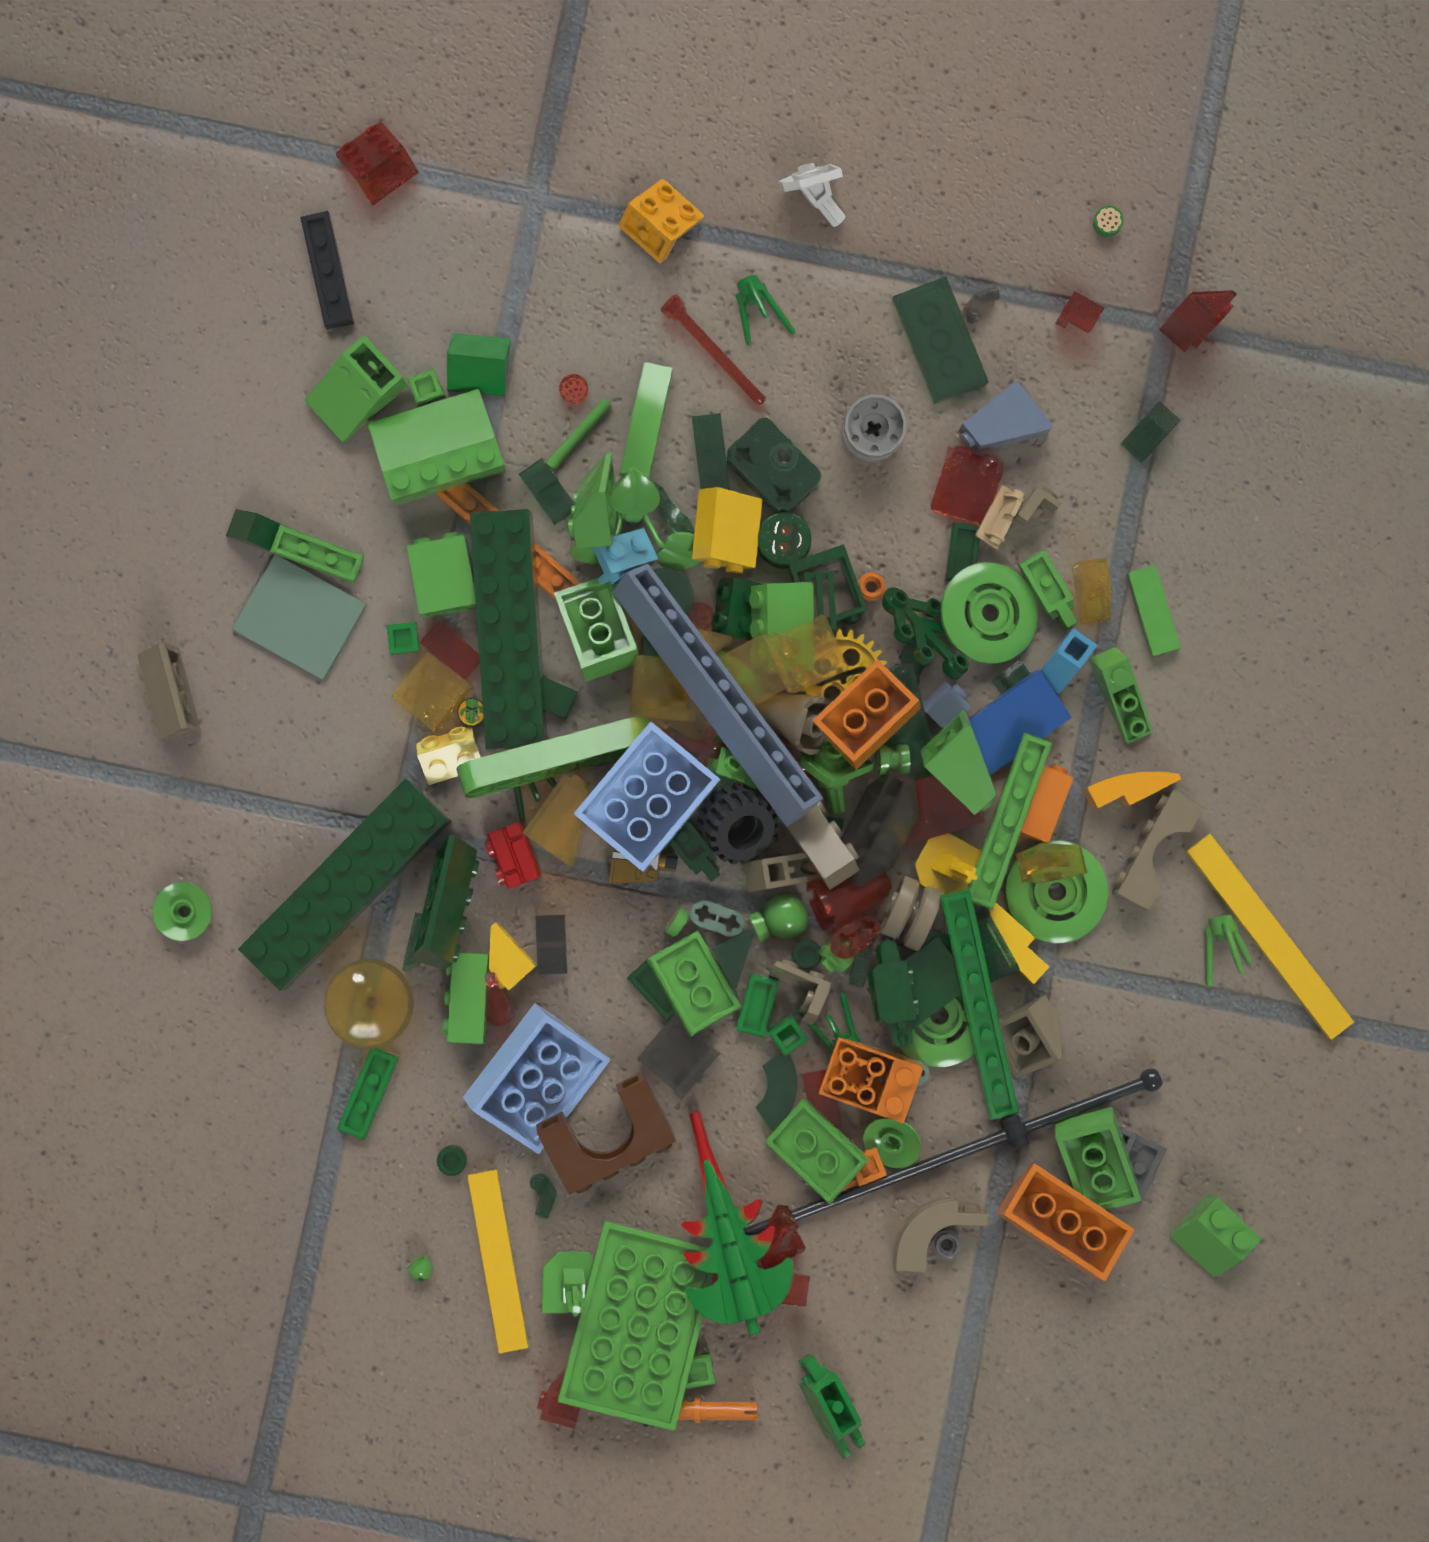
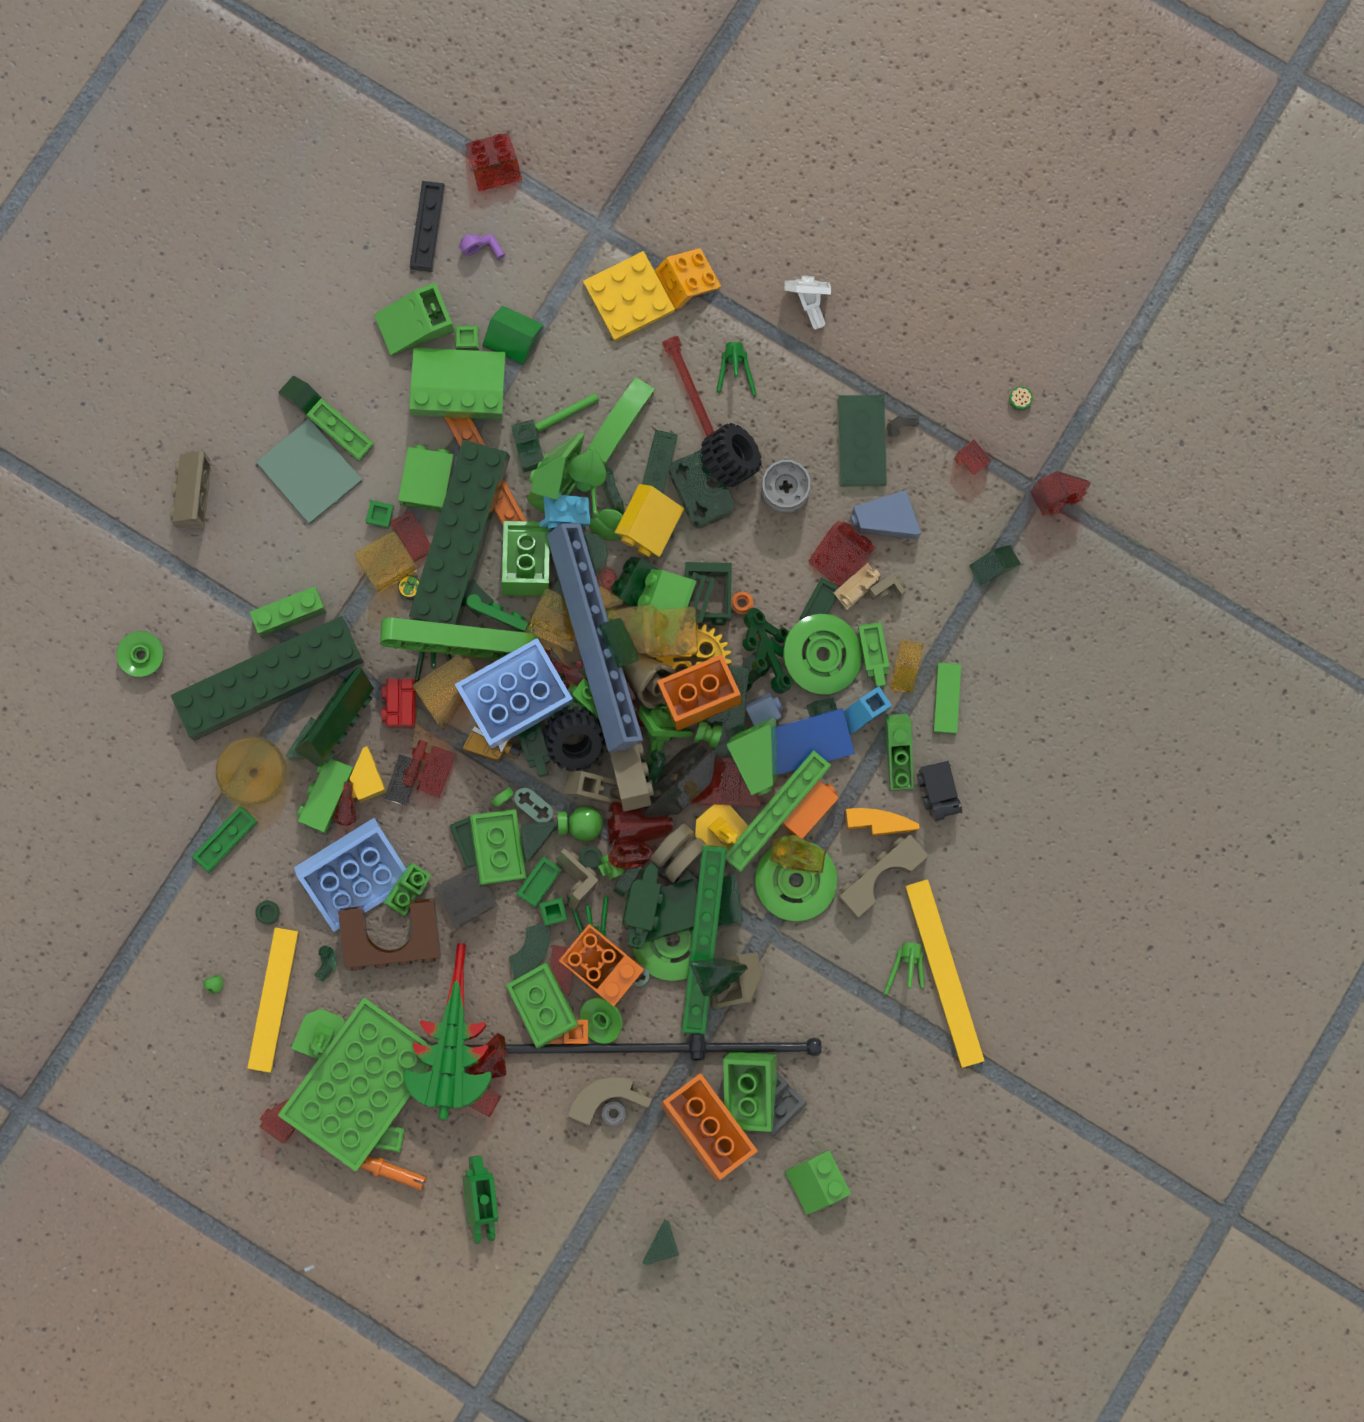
camera: 20 degrees right, 5 degrees down
(339, 796) = (288, 612): none -> bright green brick
(389, 271) = (472, 243): none -> medium lavender plate
(444, 753) = (374, 608): light yellow bracket -> none
(573, 389) = (575, 378): clear red tile -> none
(585, 705) = (496, 612): none -> green plate
(586, 920) = (435, 770): none -> clear red plate
(599, 267) = (629, 296): none -> yellow plate
(604, 1072) = (406, 888): none -> bright green slope
(750, 691) = (619, 642): none -> clear green tile
(783, 539) = (689, 544): dark green head -> none
(795, 414) = (731, 455): none -> black tyre
(845, 818) = (657, 766): none -> clear green arm
(1010, 1039) = (716, 974): none -> clear green slope
(1018, 940) = (750, 905): yellow slope -> none
(1061, 1379) = (662, 1245): none -> clear green slope
(1186, 725) = (939, 790): none -> black hinge

